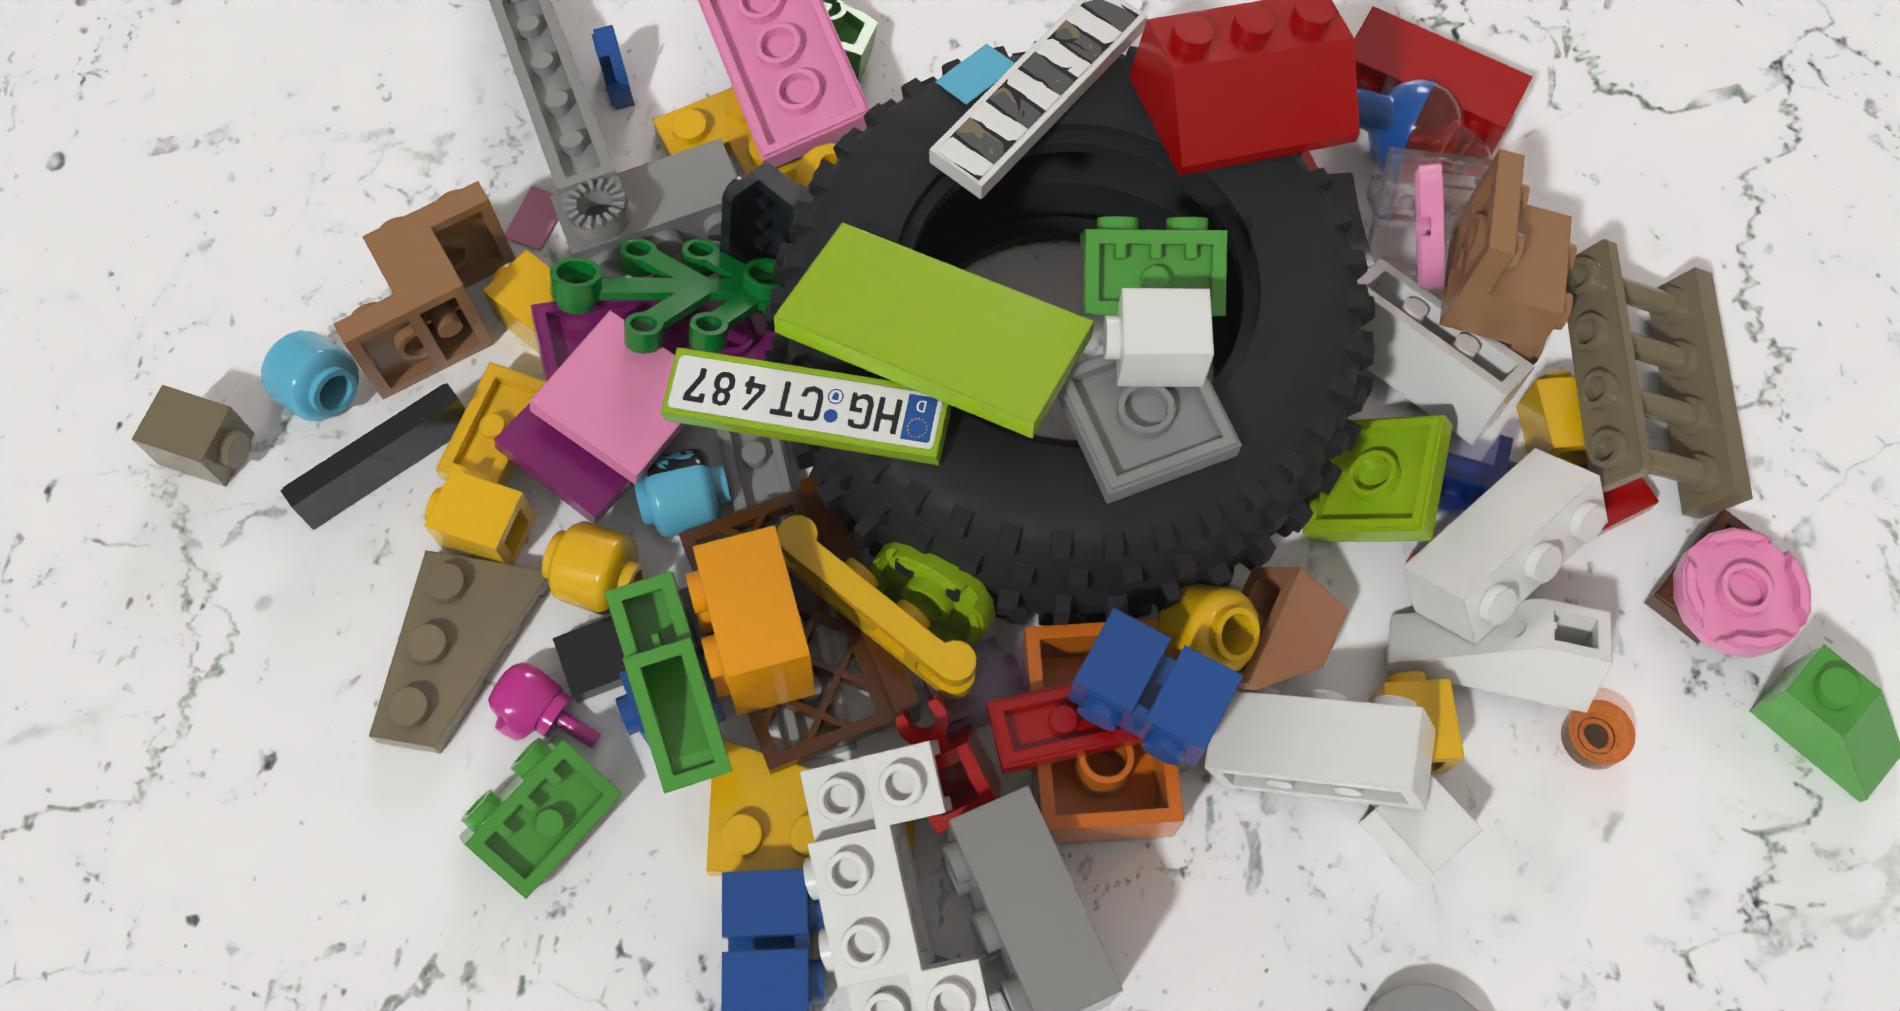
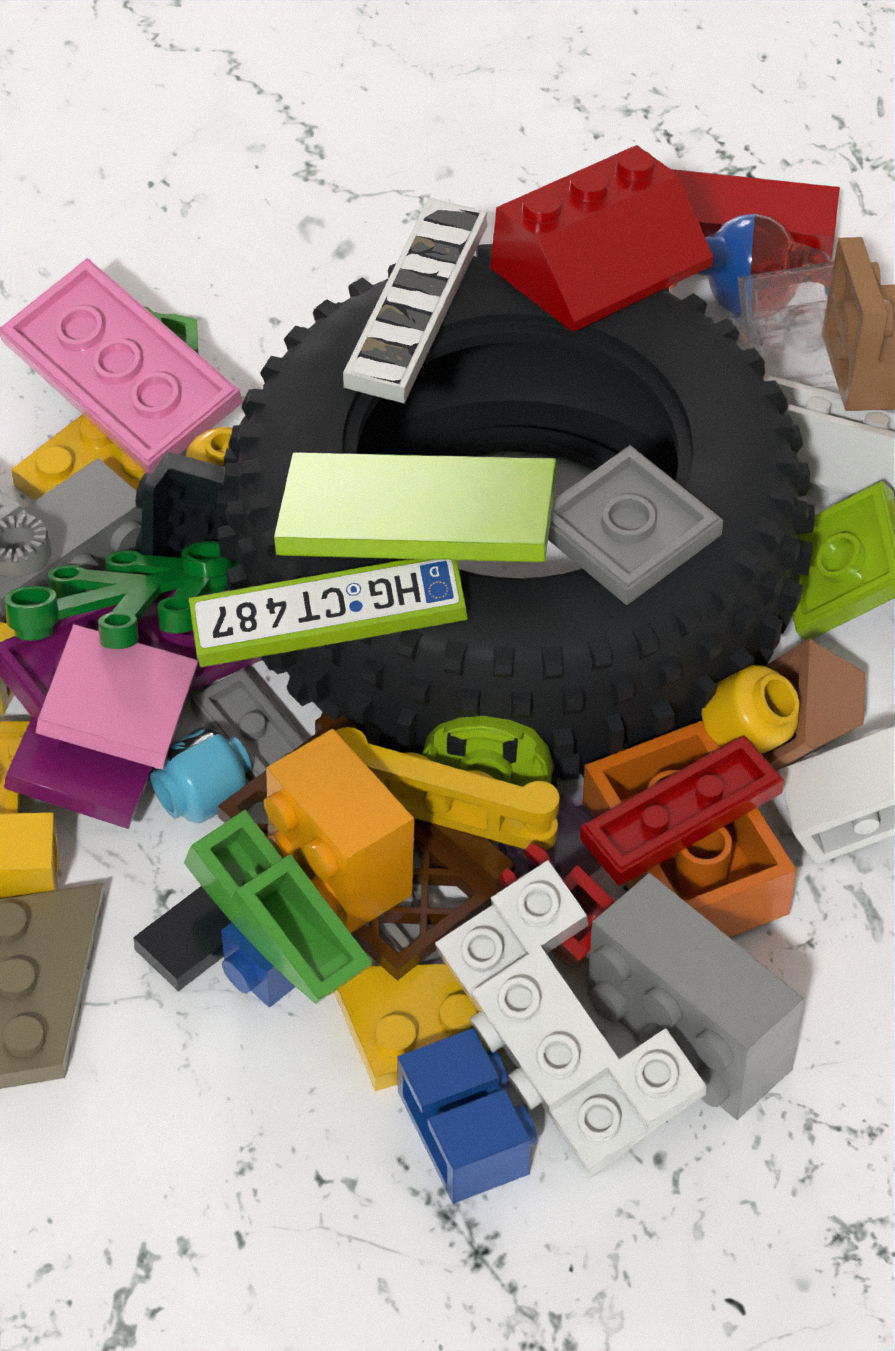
camera: 20 degrees left, 15 degrees down
(532, 701) = (138, 997): dark pink piece -> none
(537, 813) = (192, 1082): bright green bracket -> none
(588, 563) = (145, 862): yellow head -> none
(975, 74) = (350, 305): medium azure sticker -> none
(1126, 257) = (587, 407): bright green bracket -> none
(1150, 694) = (726, 771): blue piece -> none
(1160, 337) = (620, 450): white brick -> none
(1430, 226) = (803, 329): bright pink tile -> none

